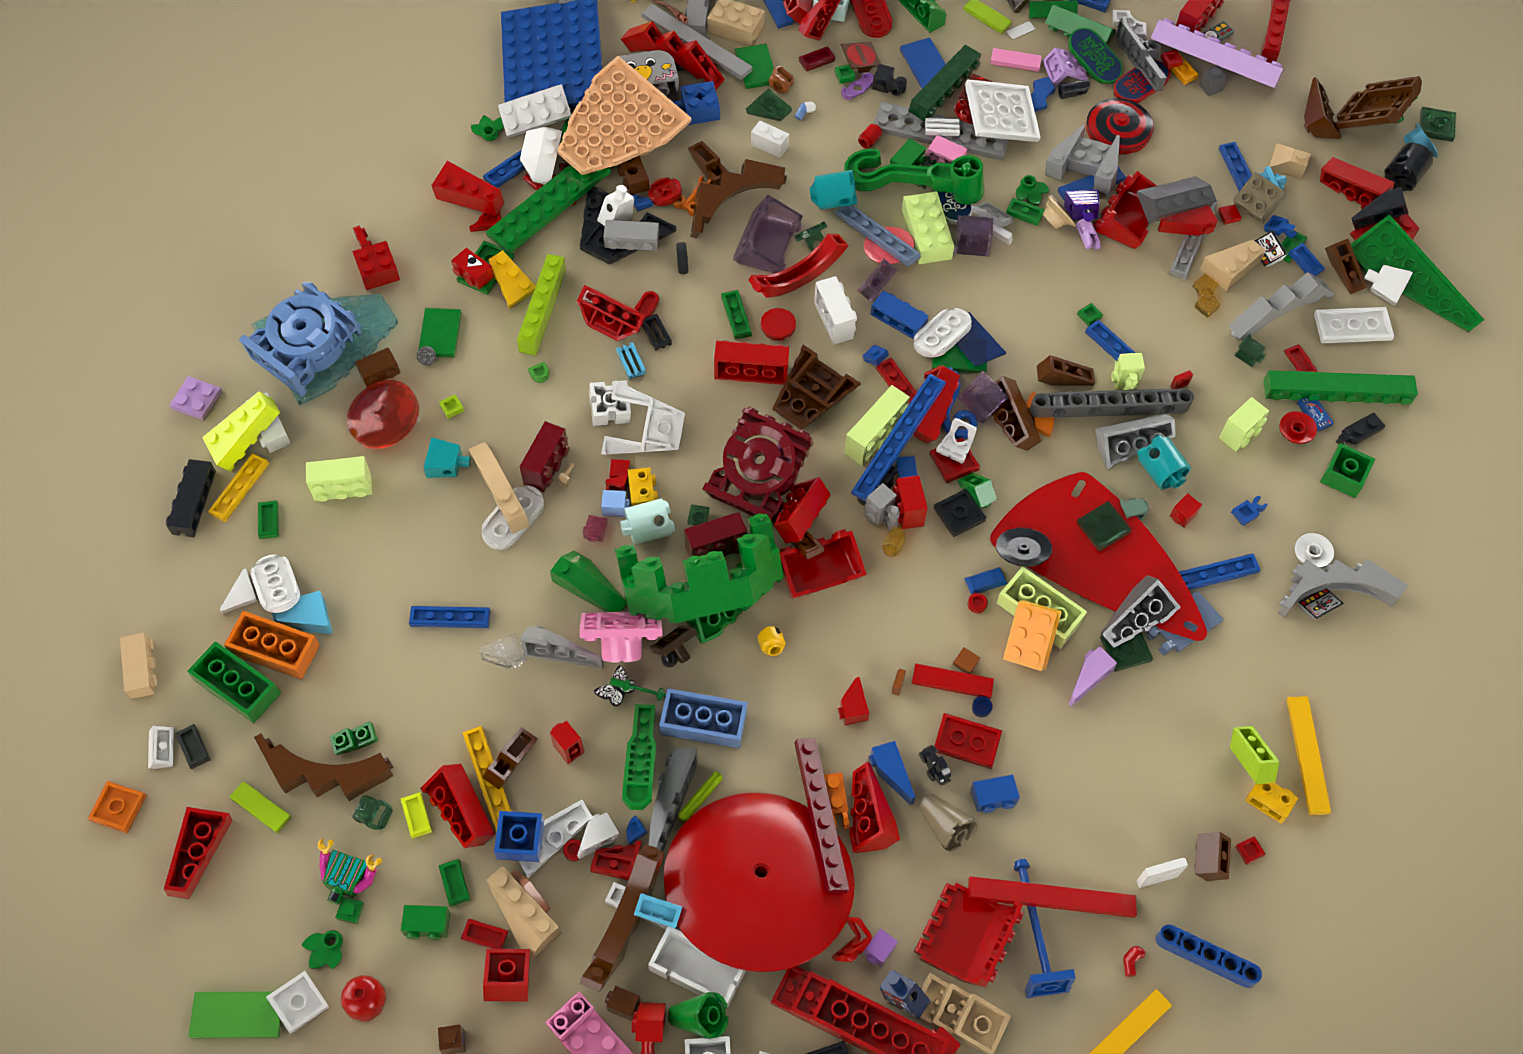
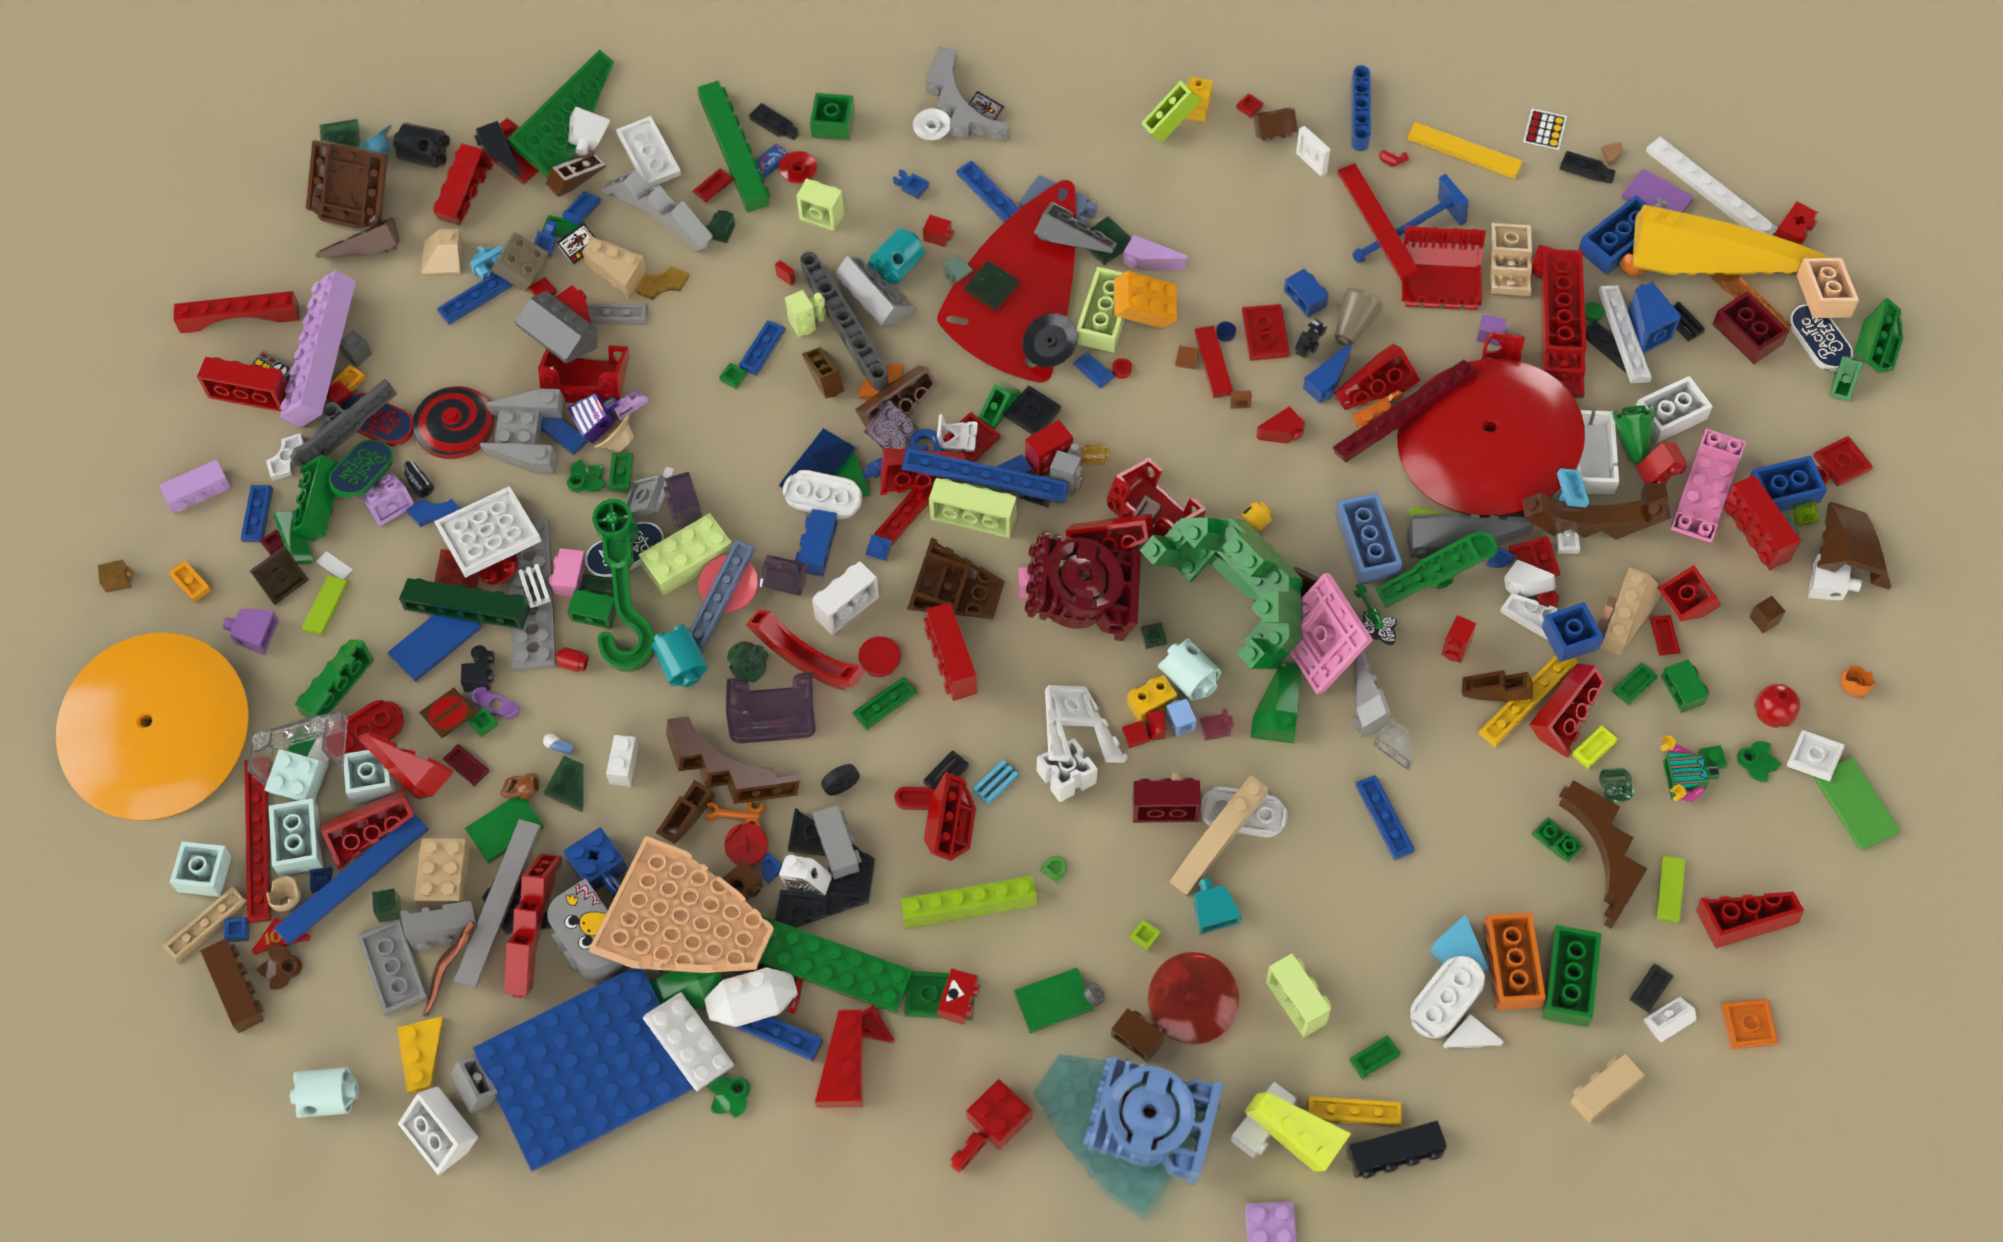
camera: 110 degrees left, 0 degrees up
(512, 281) = (948, 951): yellow wing -> none
(715, 535) = (1178, 600): dark red brick -> none
(897, 991) = (1523, 296): dark blue torso -> none
(1016, 59) = (388, 553): bright pink tile -> none
(1308, 756) = (1138, 86): yellow tile -> none

